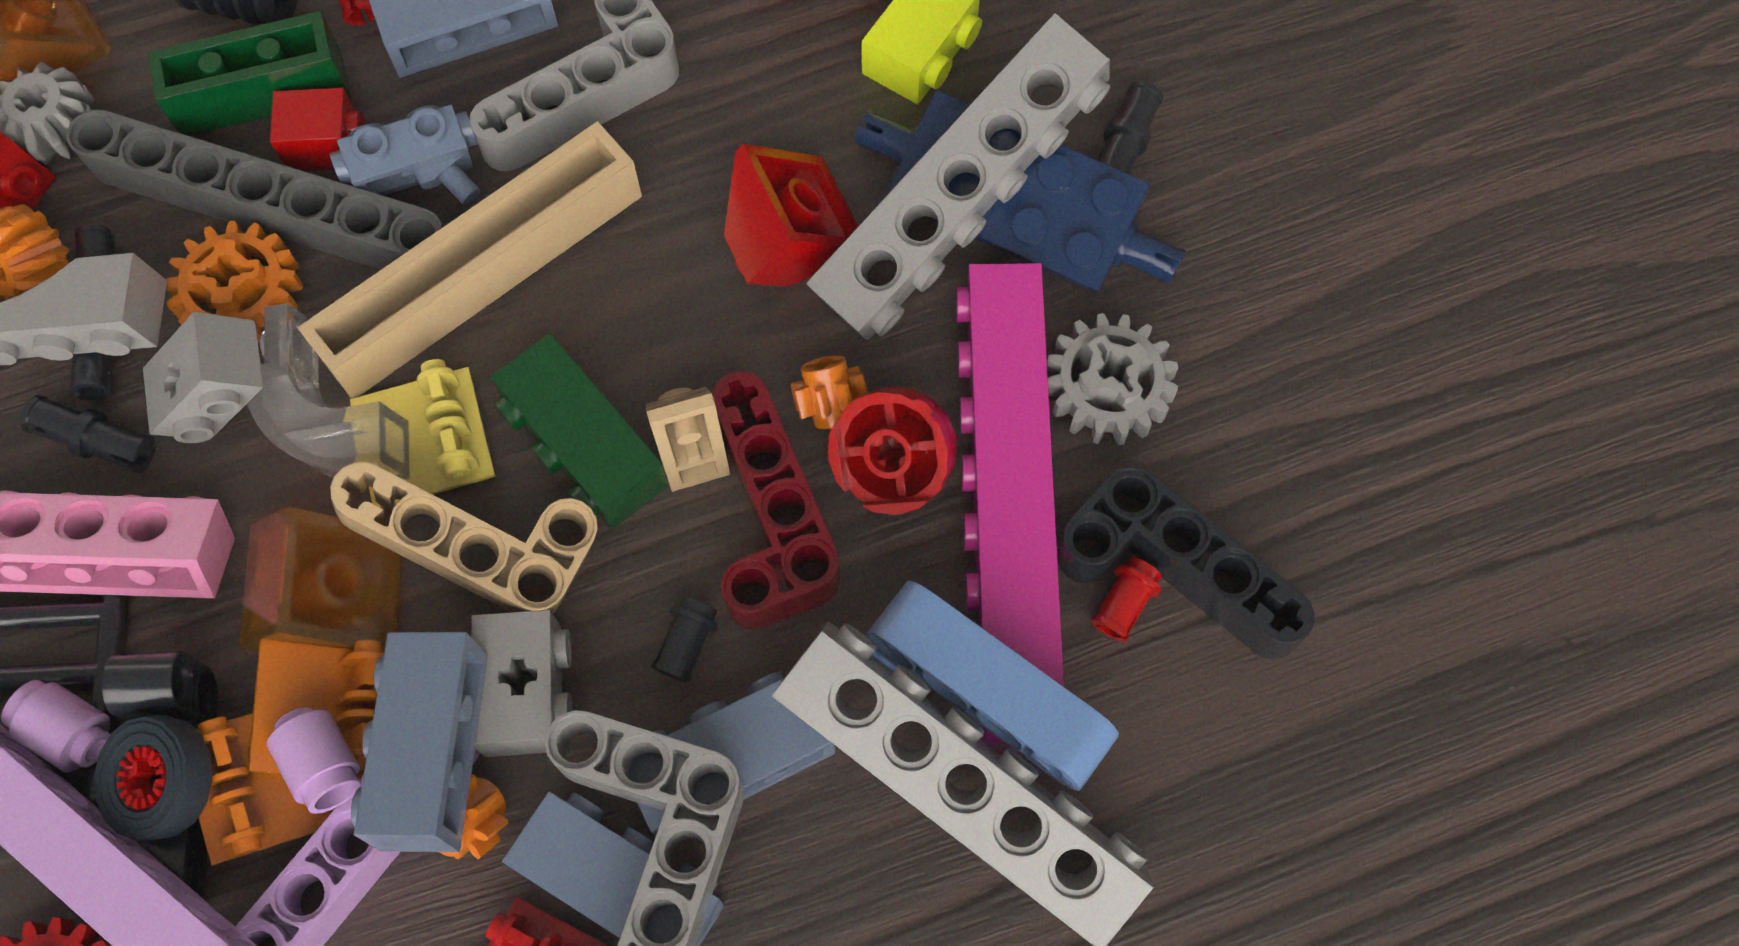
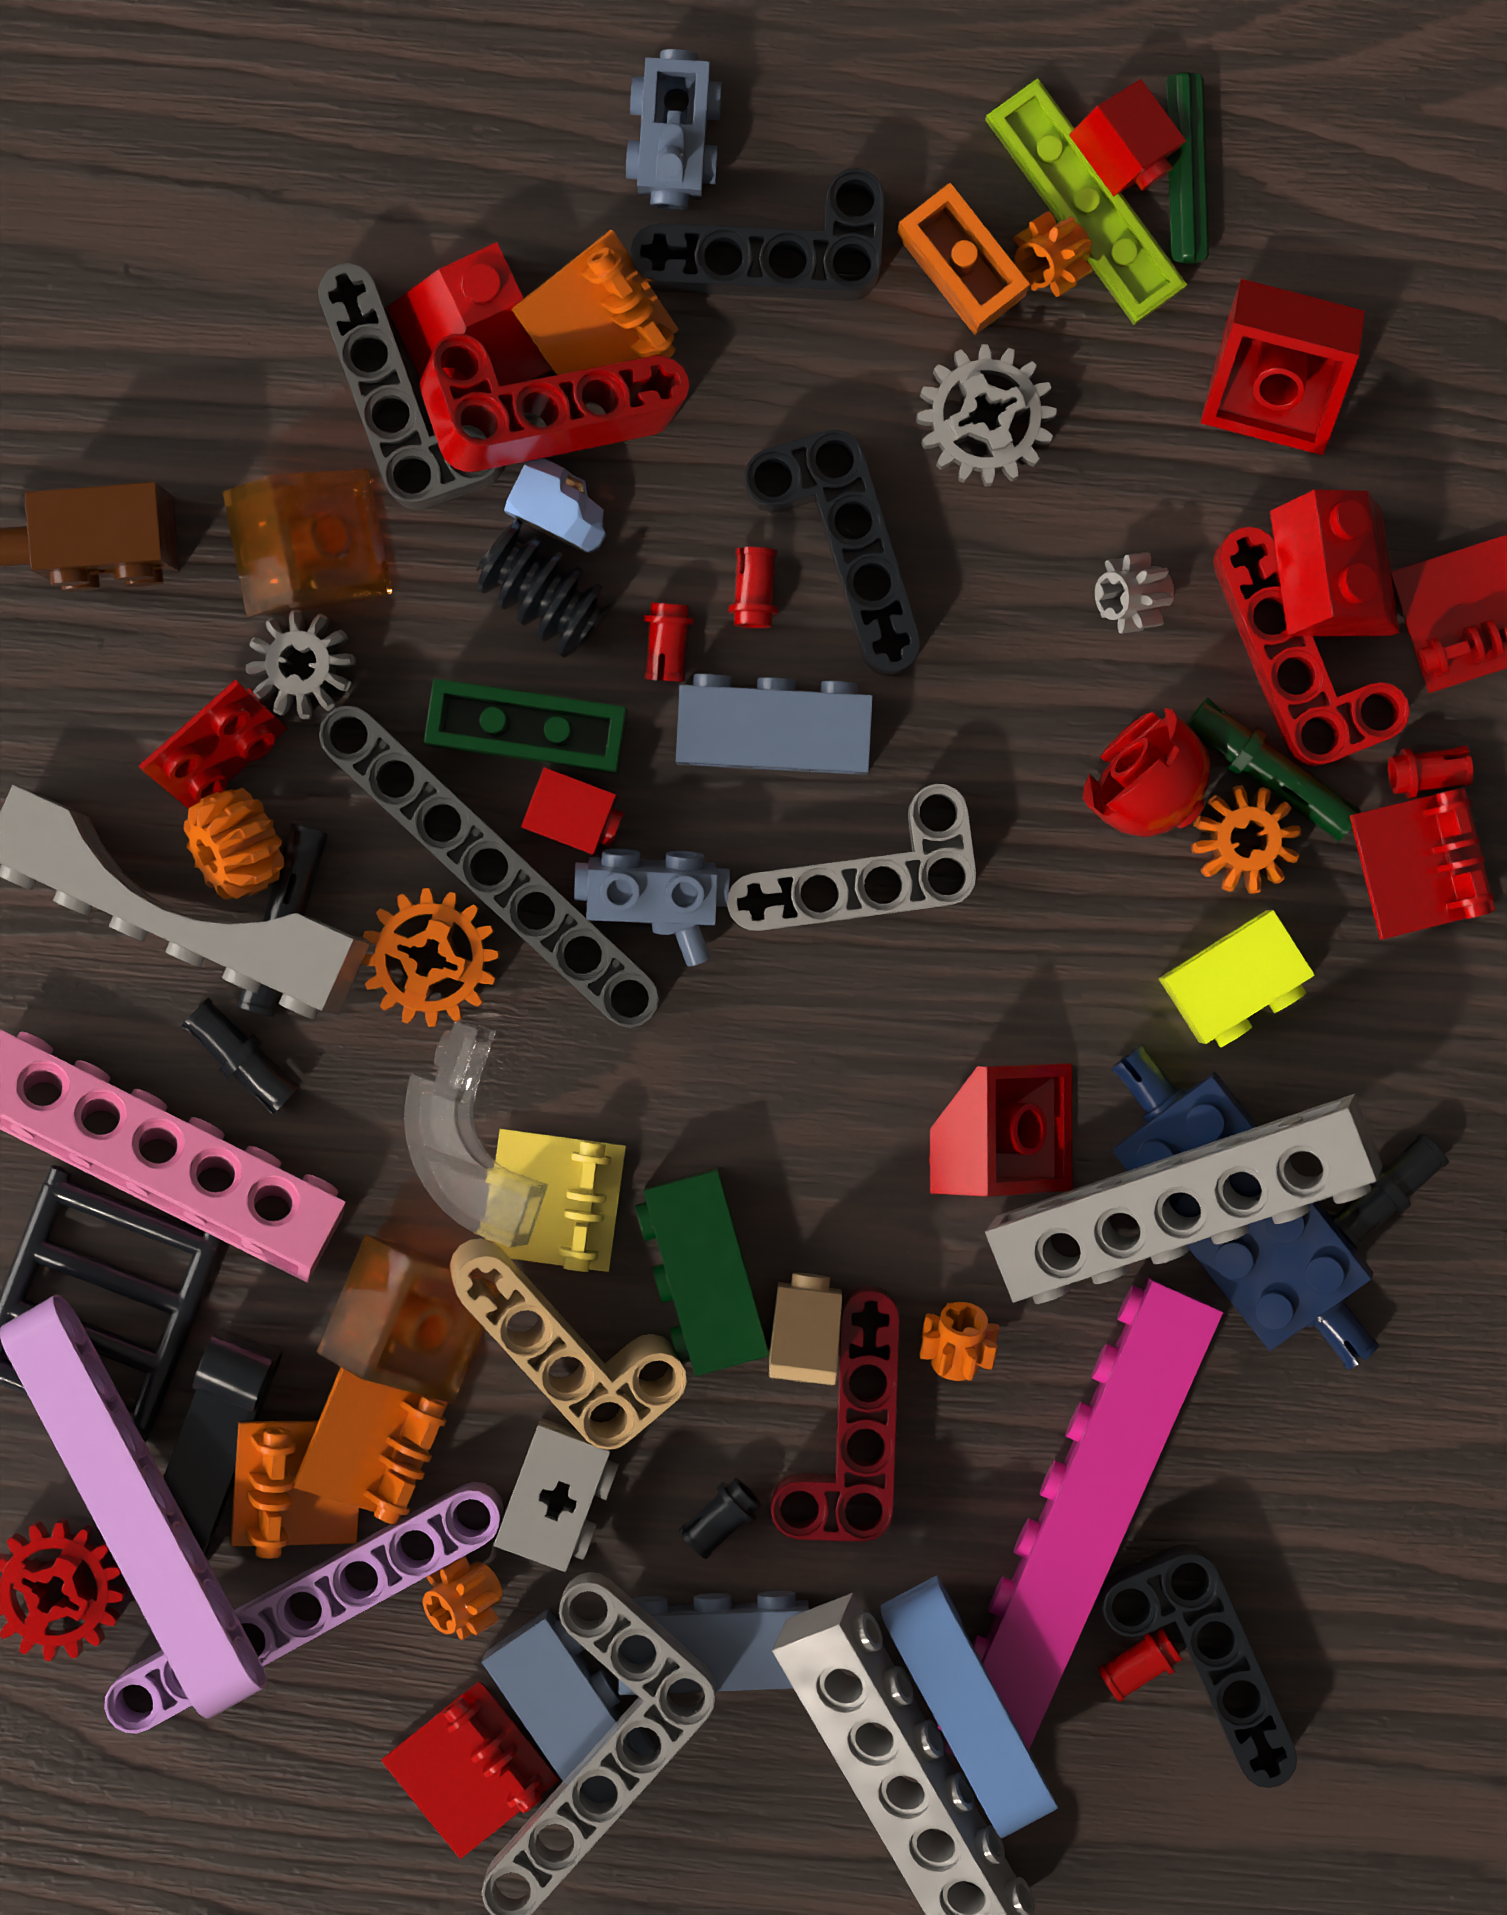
camera: 20 degrees right, 20 degrees up
(56, 725) = (136, 1359): lavender brick -> none
(133, 757) = (193, 1485): black bush -> none
(202, 377) = (371, 1074): light grey brick -> none
(314, 759) = (355, 1507): lavender brick -> none
(420, 743) = (452, 1540): sand blue brick -> none
(473, 260) = (675, 1050): tan brick -> none
(892, 449) = (991, 1438): red cylinder -> none
(1105, 402) = (1263, 1446): light grey gear -> none

